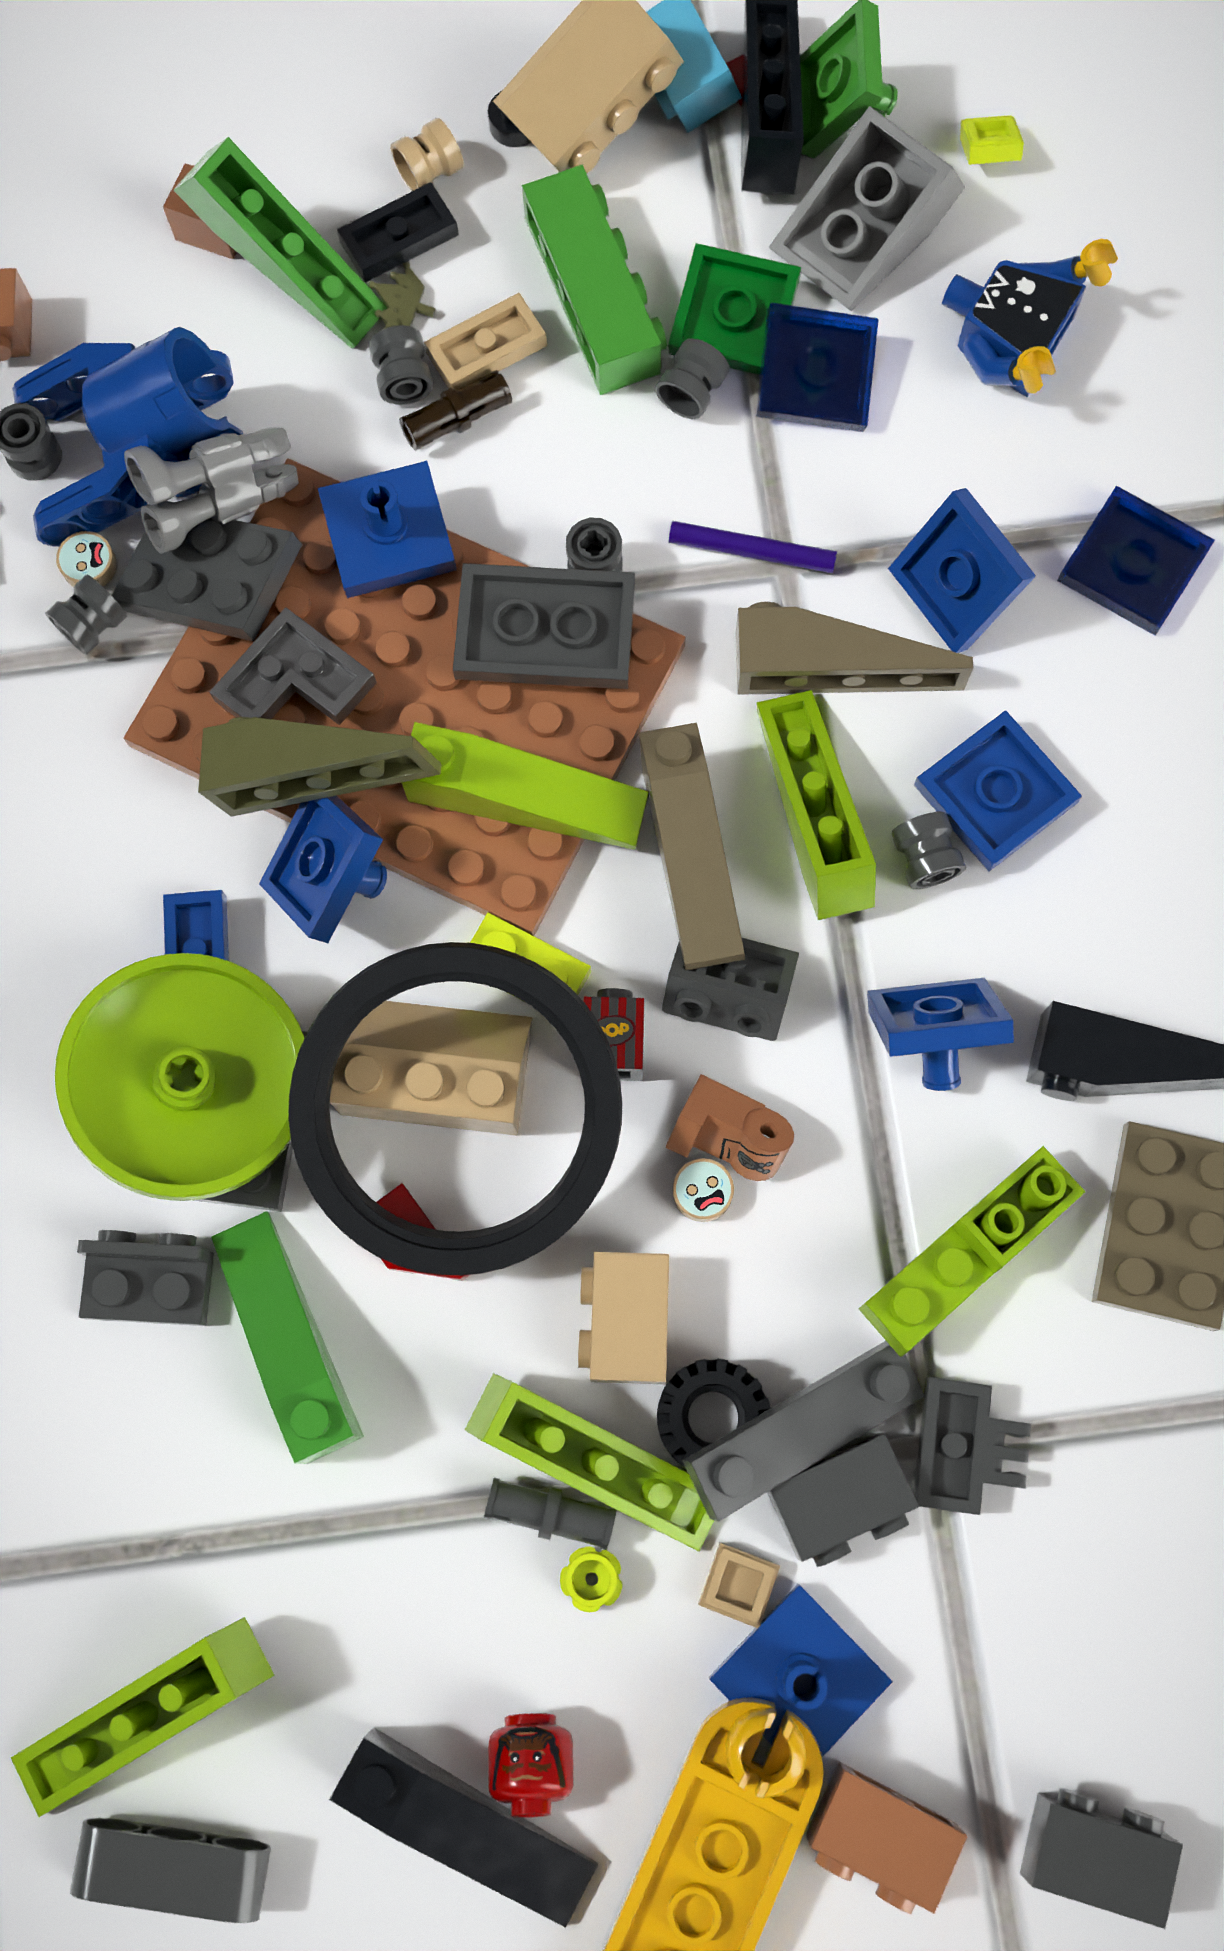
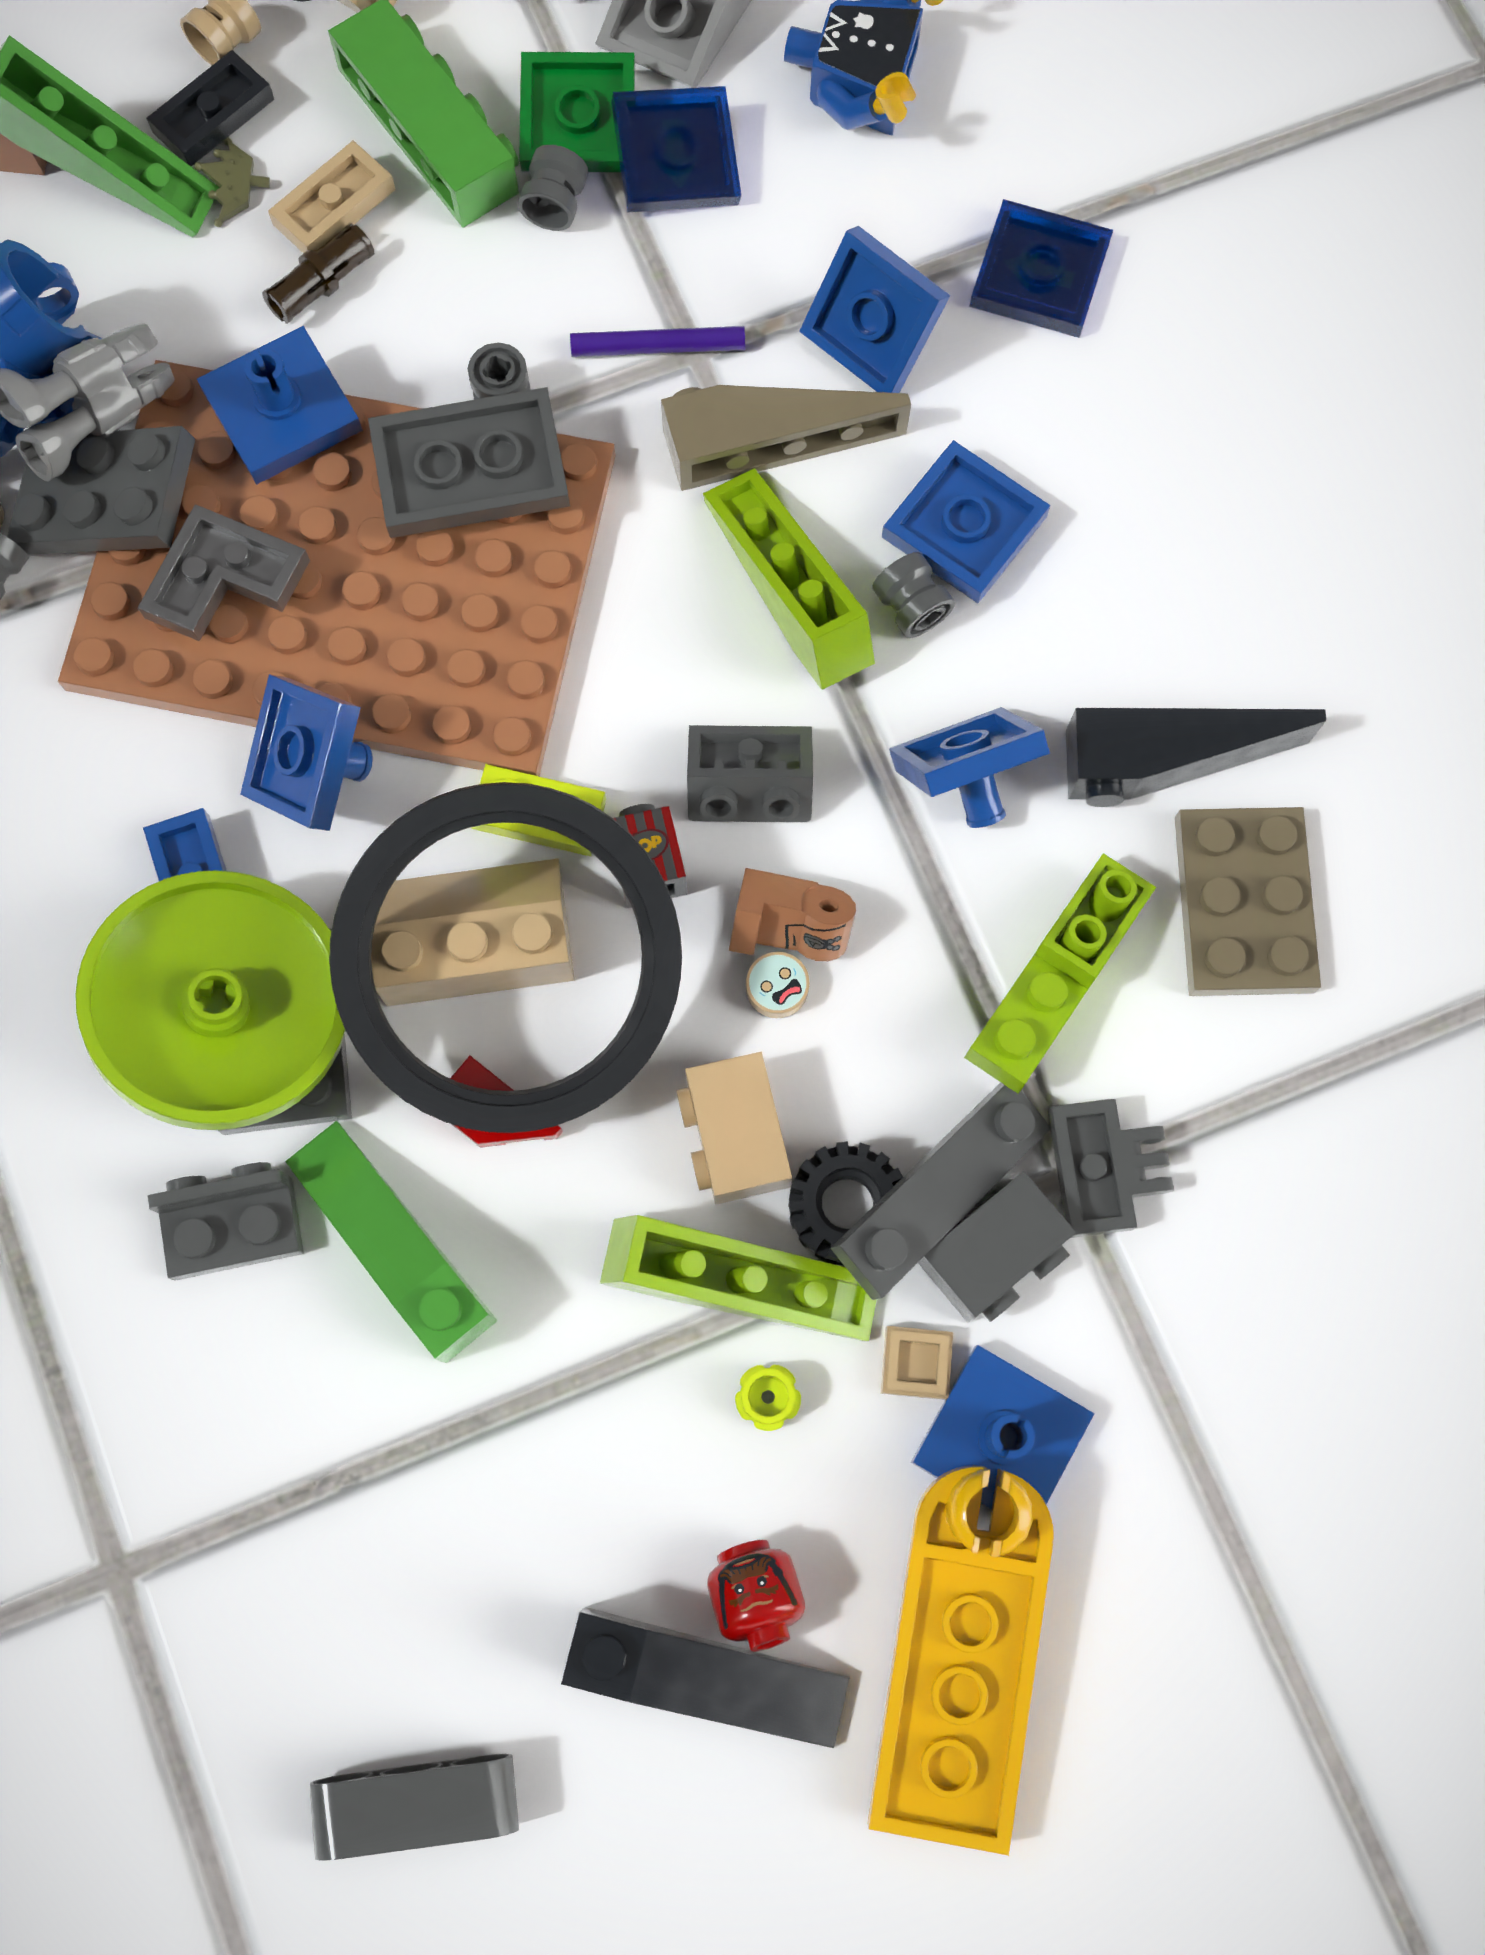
camera: 20 degrees left, 0 degrees up
(142, 1716) = (342, 1660): lime slope -> none
(282, 763) = (240, 655): olive slope -> none
(402, 372) = (254, 248): dark grey wheel -> none
(525, 789) = (482, 628): lime slope -> none
(550, 1513) = (709, 1343): dark grey pin -> none
(691, 845) = (674, 643): dark tan slope -> none
(885, 1839) = (1128, 1567): nougat brick -> none
(1100, 1858) = (1343, 1526): dark grey brick -> none

